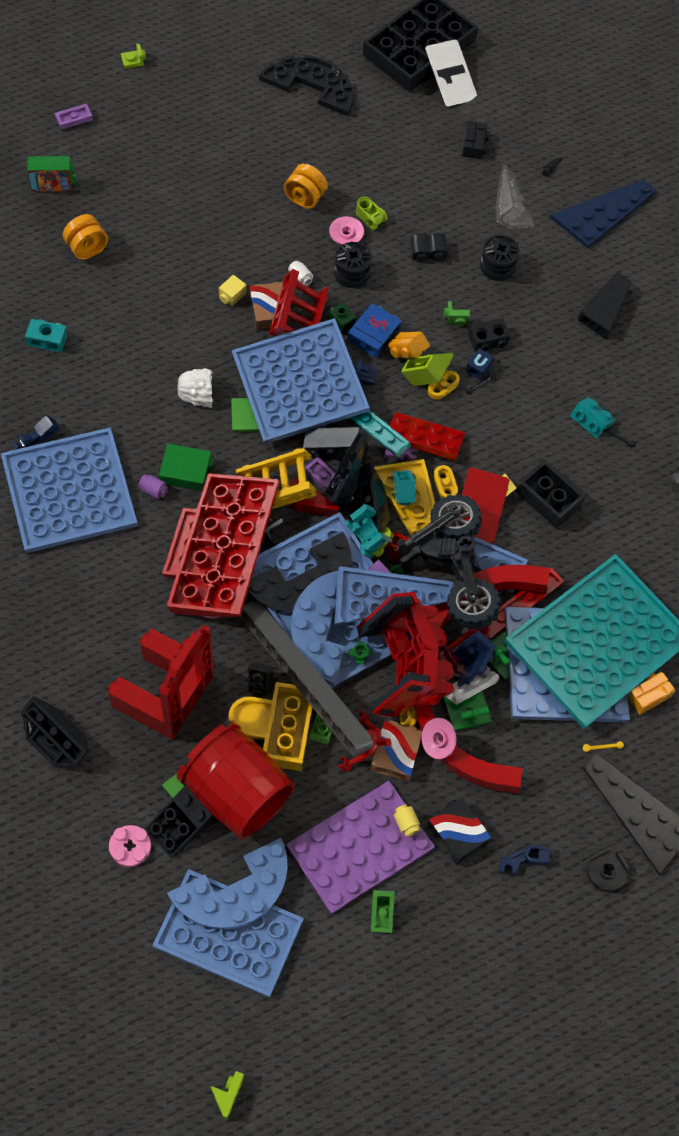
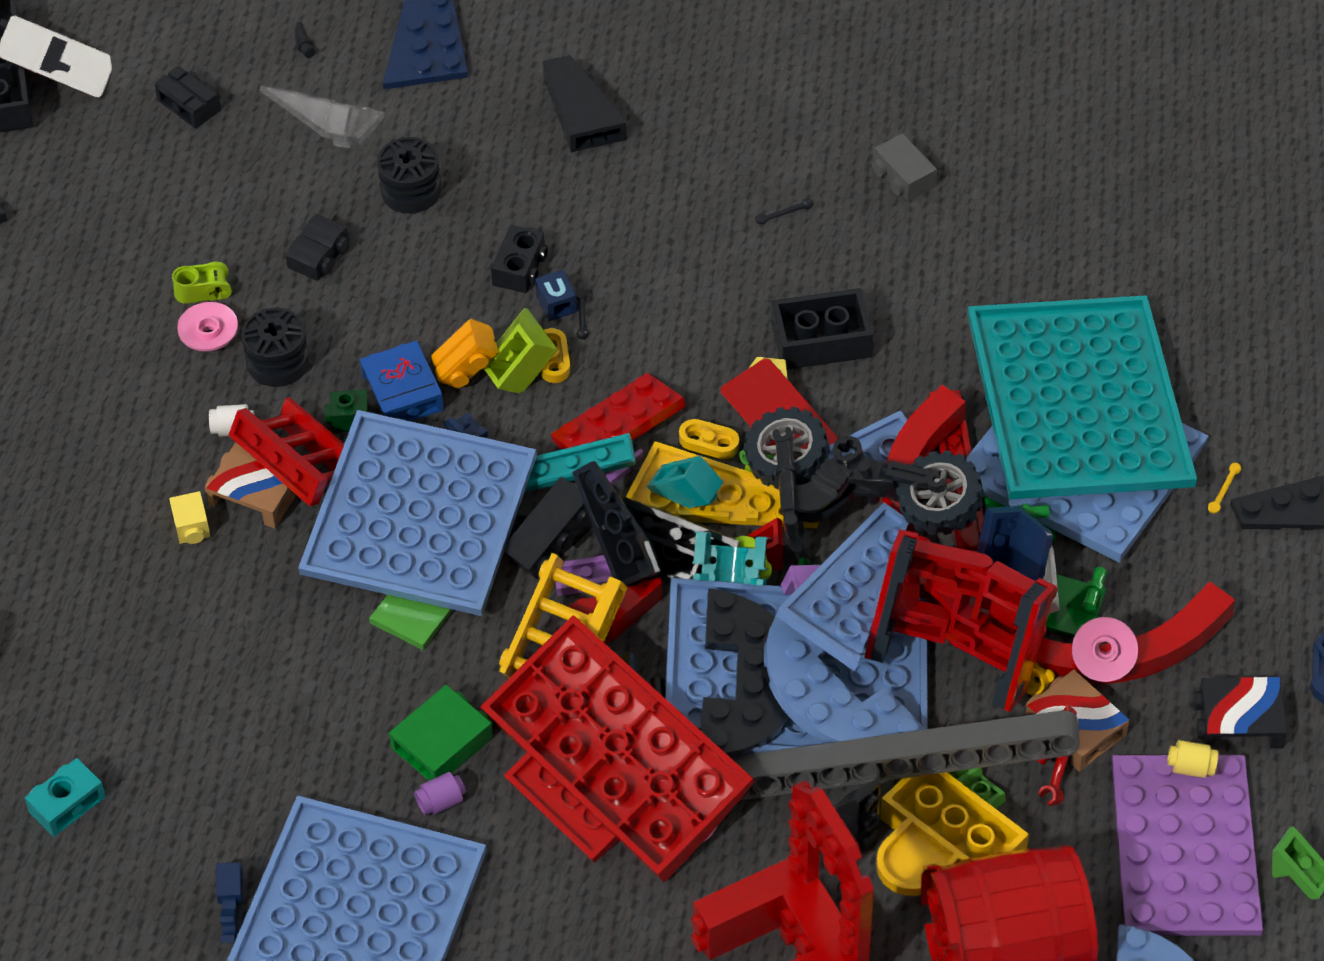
camera: 50 degrees left, 10 degrees down
(196, 387) = (322, 646): white hair -> none
(305, 186) = (95, 328): light orange wheel -> none
(360, 646) = (906, 670): green plate -> none
(456, 317) = (457, 280): bright green bracket -> none
(592, 417) = (736, 220): teal bracket -> none
(651, 692) = (1190, 388): light orange brick -> none

